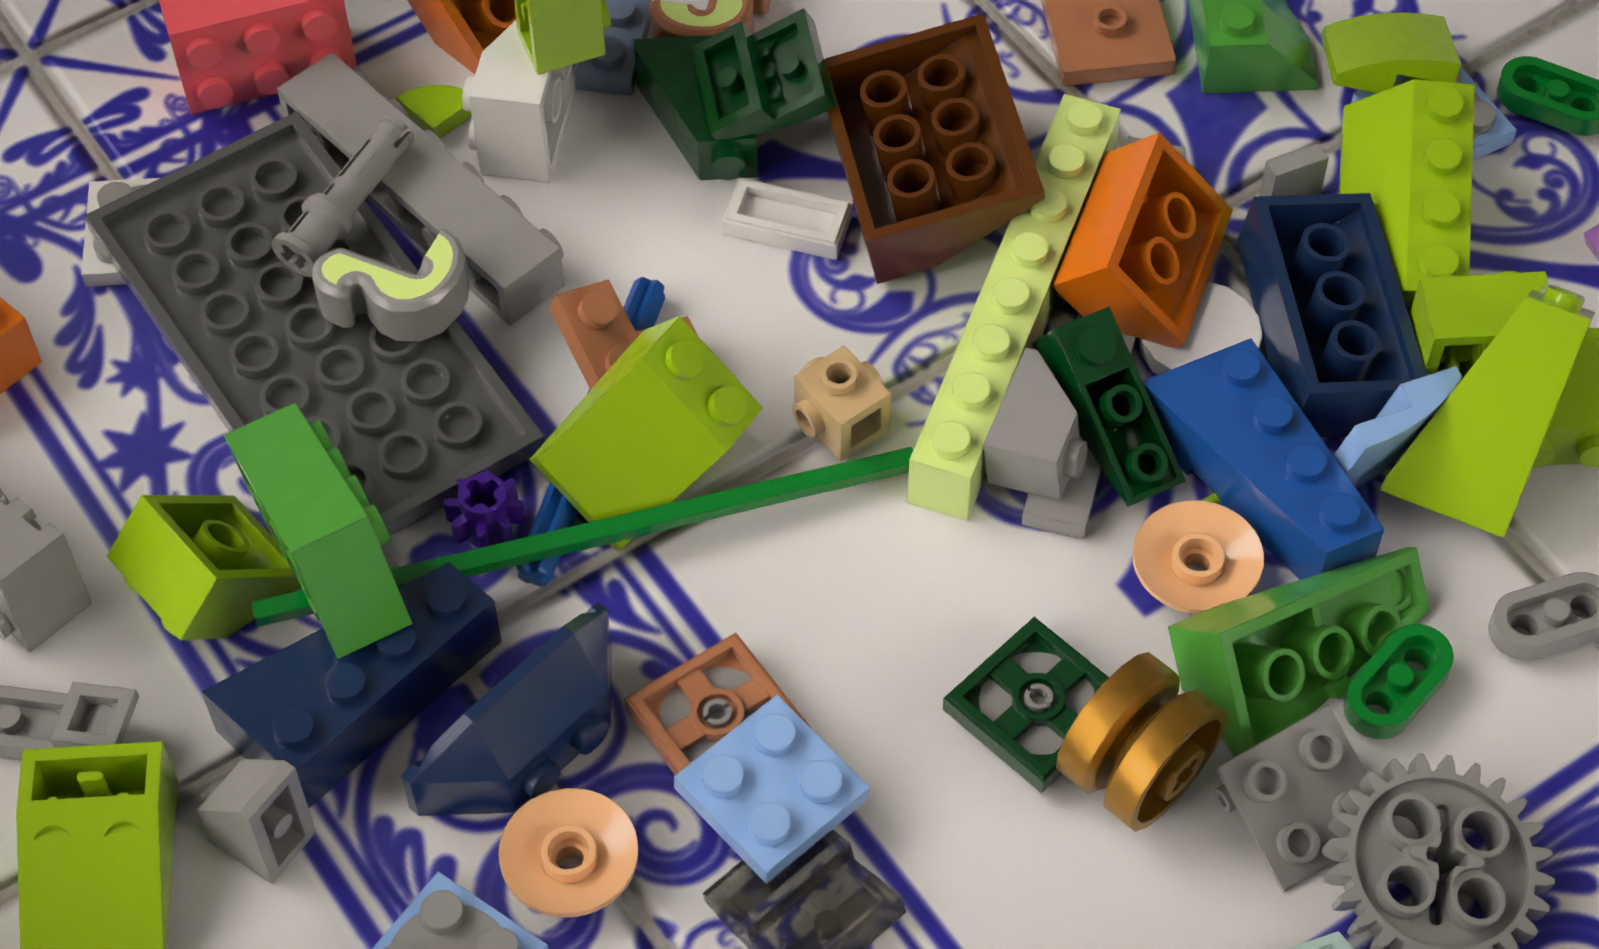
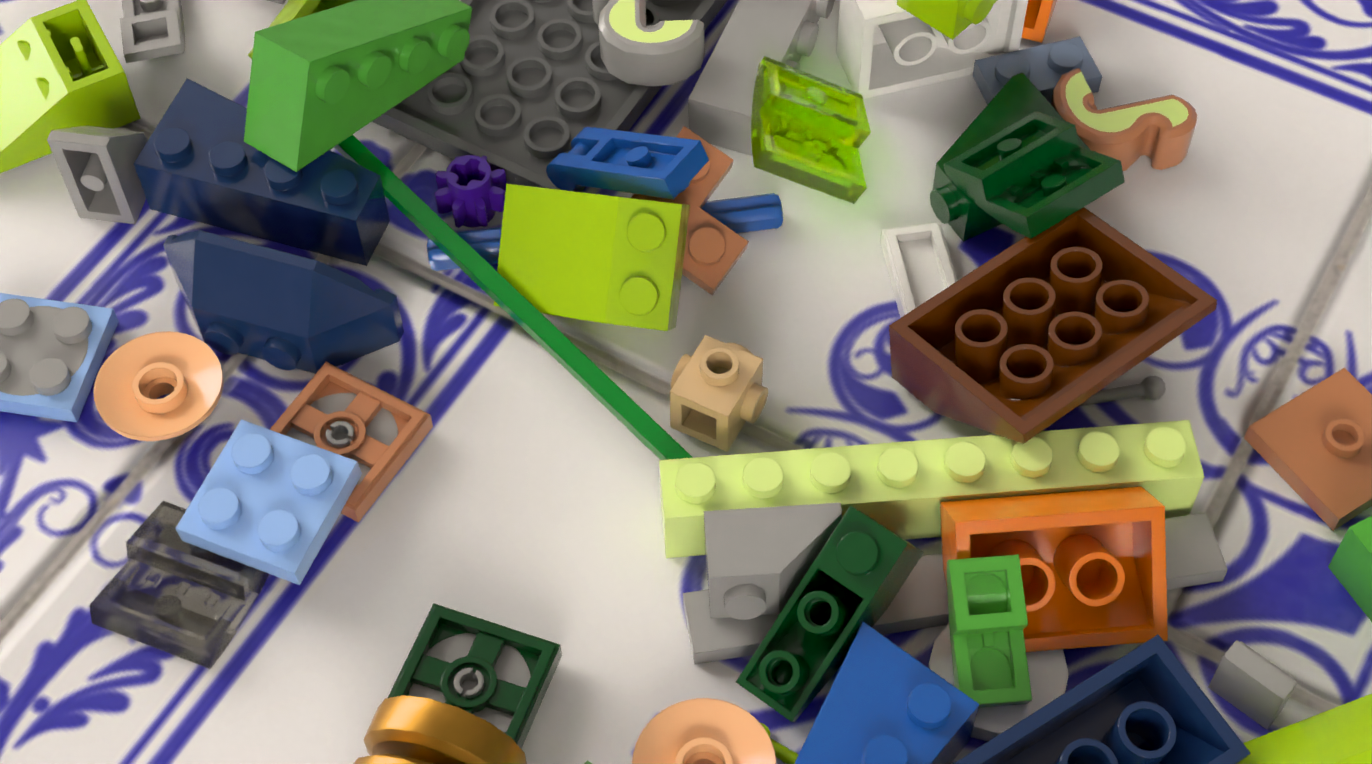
camera: 65 degrees right, 0 degrees up
(572, 354) = (628, 162): none -> blue plate
(584, 220) = (808, 130): none -> clear neon green slope
(1172, 299) = (987, 630): none -> bright green slope

